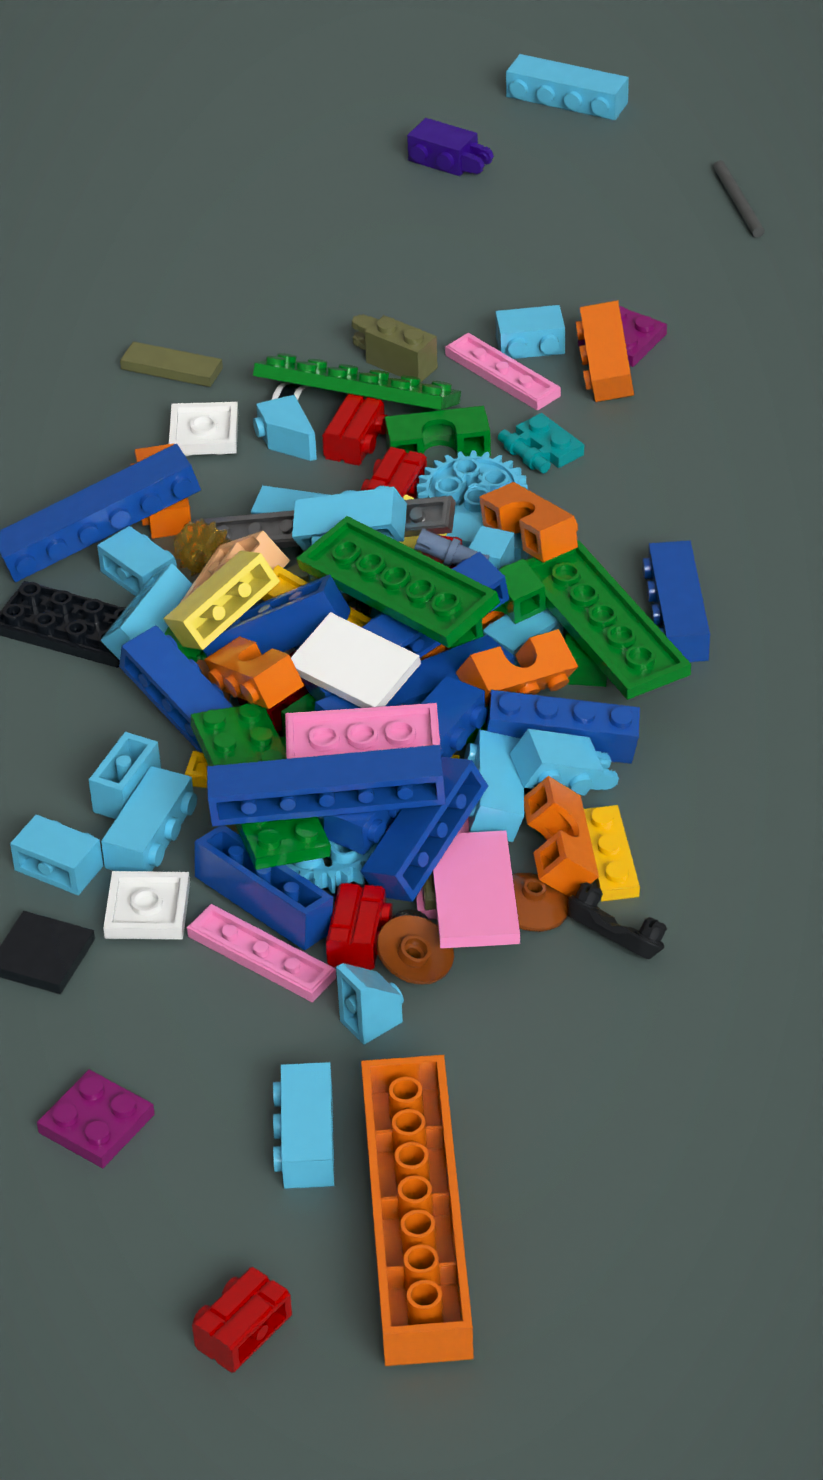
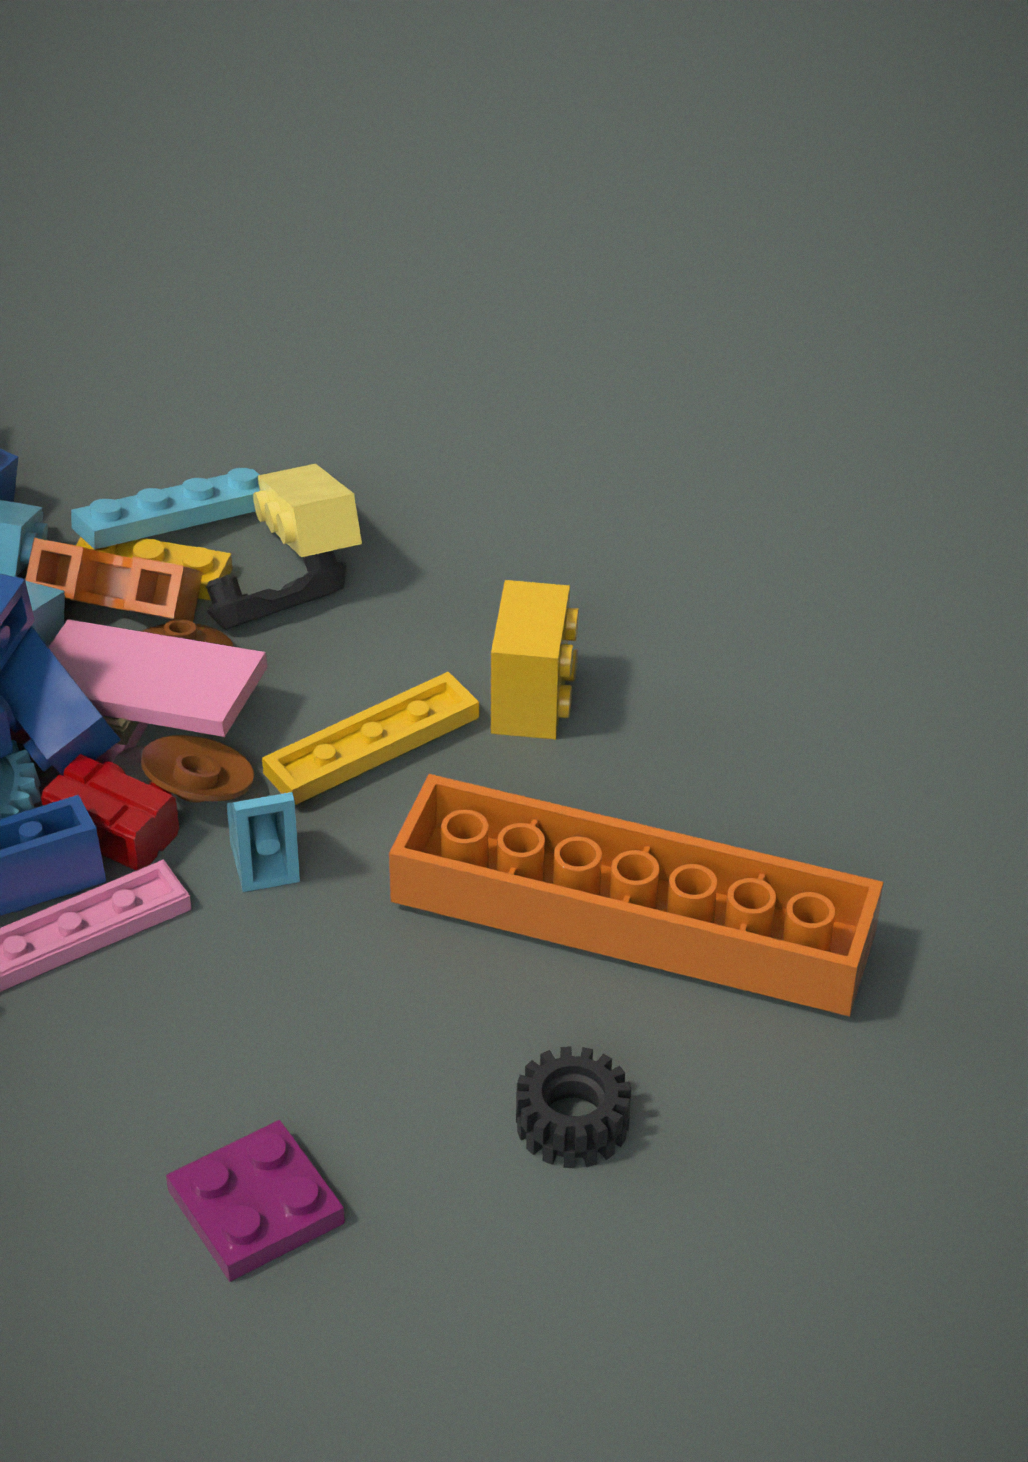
camera: 70 degrees left, 0 degrees up
(225, 1221) = (573, 1135): none -> black tyre
(241, 1319) = (719, 1130): red brick -> none
(304, 1125) = (424, 964): medium azure brick -> none
(501, 1026) = (370, 737): none -> yellow plate
(603, 1073) = (533, 659): none -> yellow brick
(661, 838) = (166, 509): none -> medium azure plate
(683, 900) = (308, 510): none -> light yellow brick

